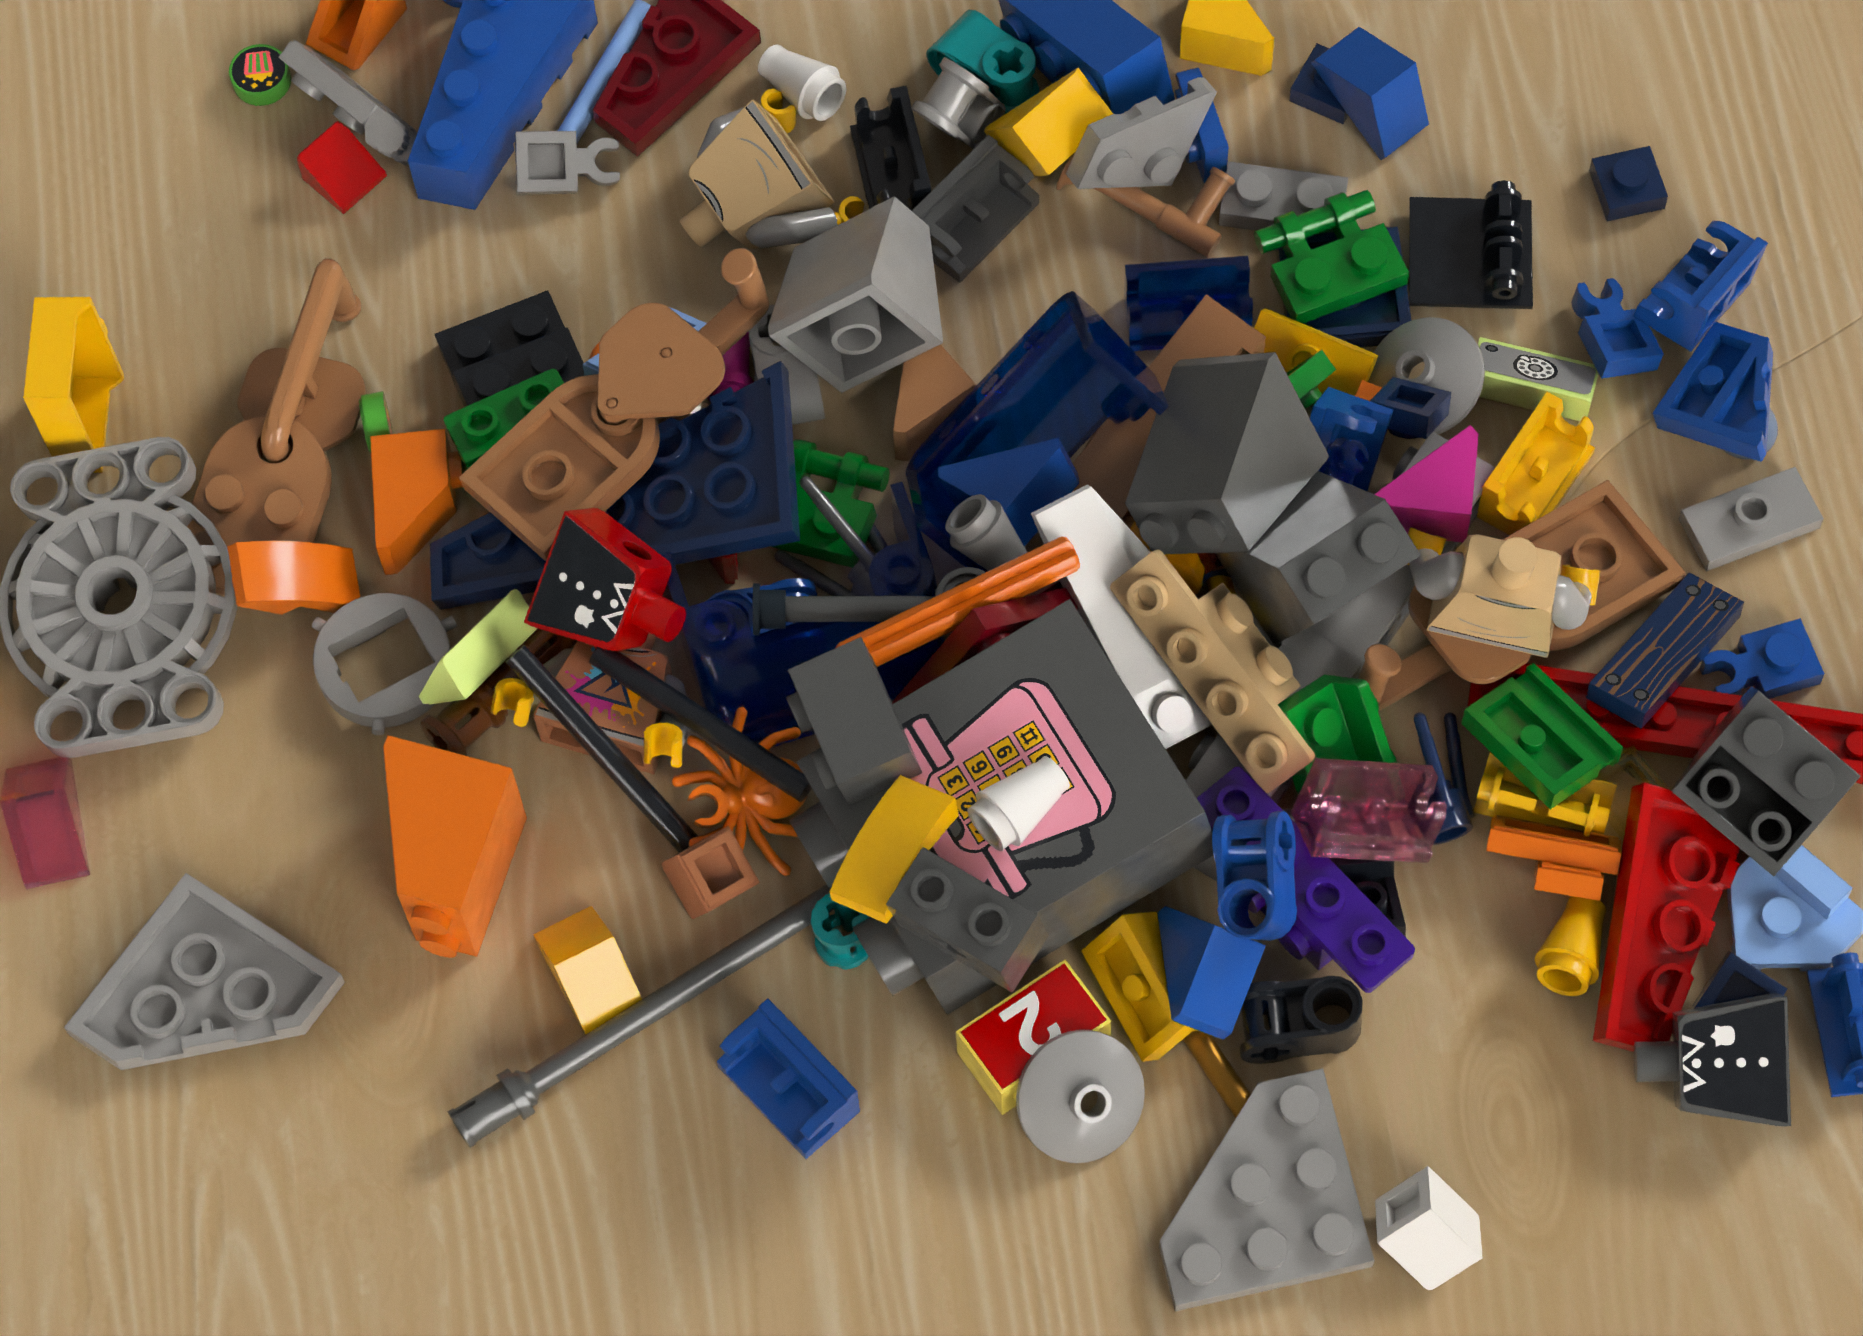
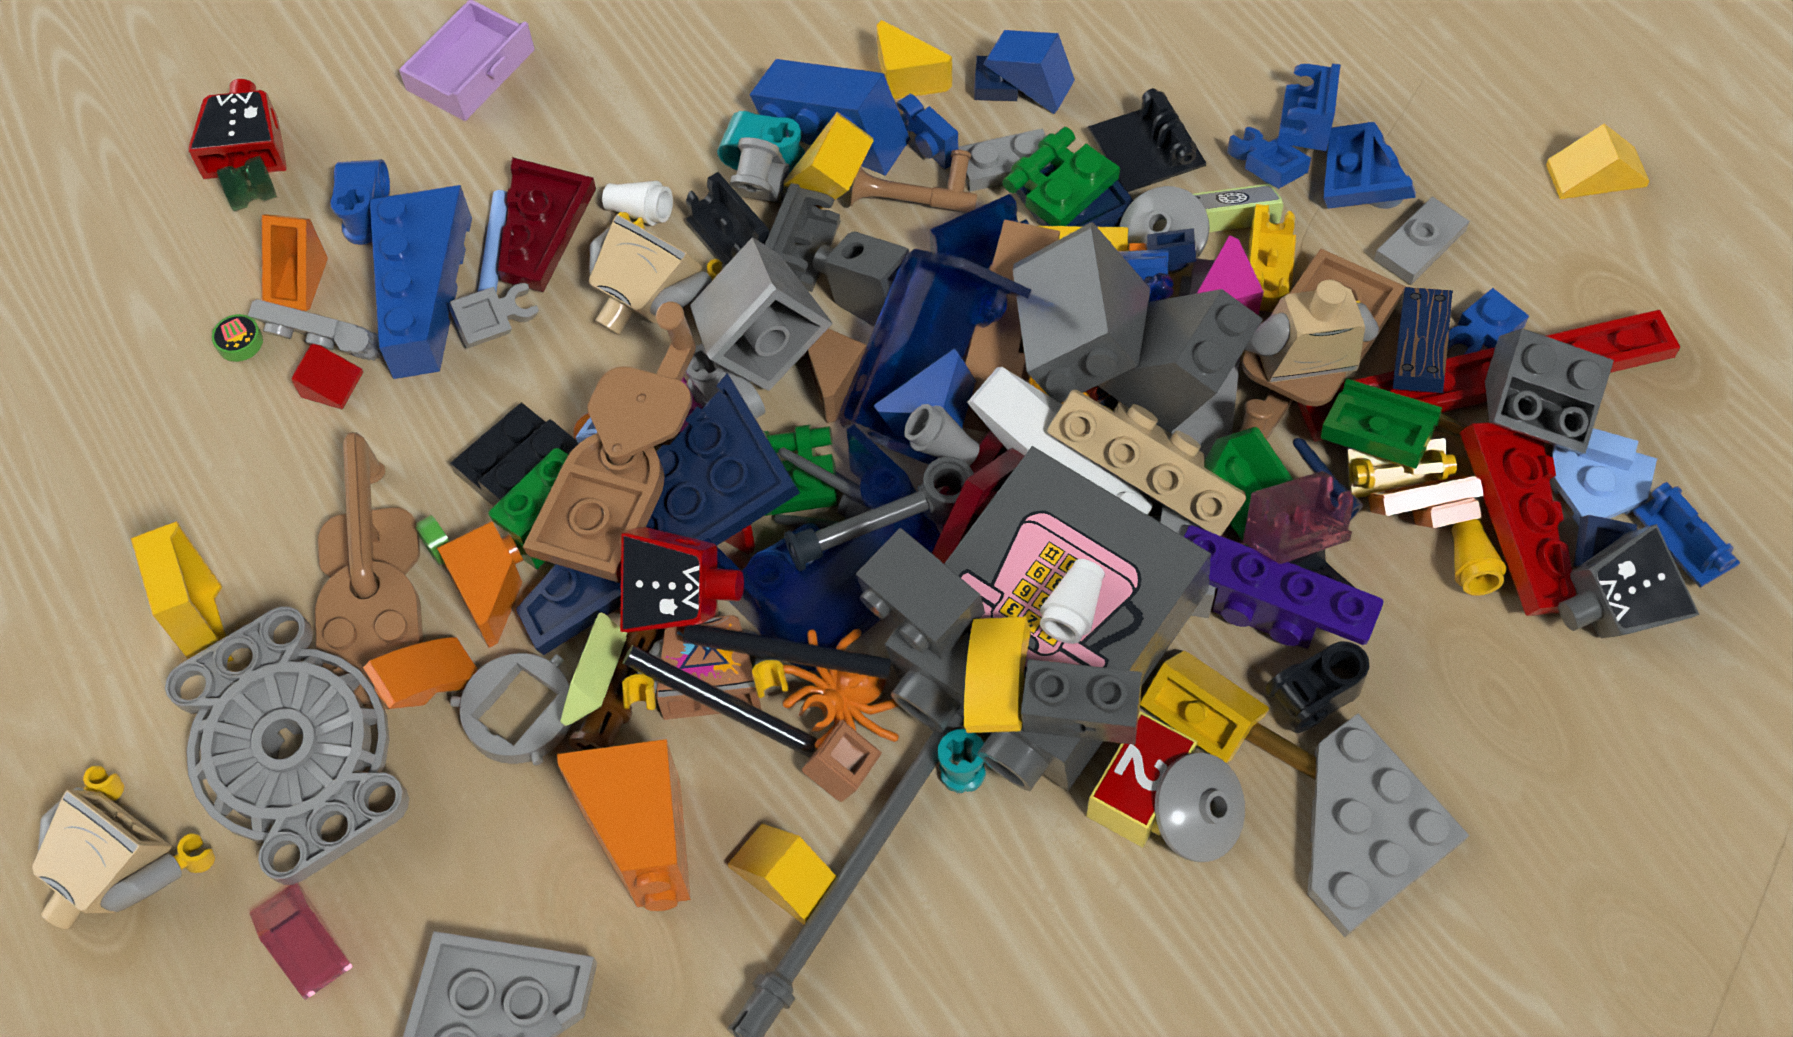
camera: 25 degrees left, 5 degrees down
(788, 1079) = (977, 888): blue hinge -> none
(949, 609) = (948, 484): orange axle -> none
(1013, 282) = (860, 272): none -> dark grey torso
(1143, 143) = (901, 149): light grey wing -> none
(1206, 971) = (1243, 675): blue slope -> none
(1255, 869) = (1250, 587): blue piece -> none
(1428, 1229) = (1493, 795): white panel -> none
(1628, 183) = (1222, 69): dark blue plate -> none

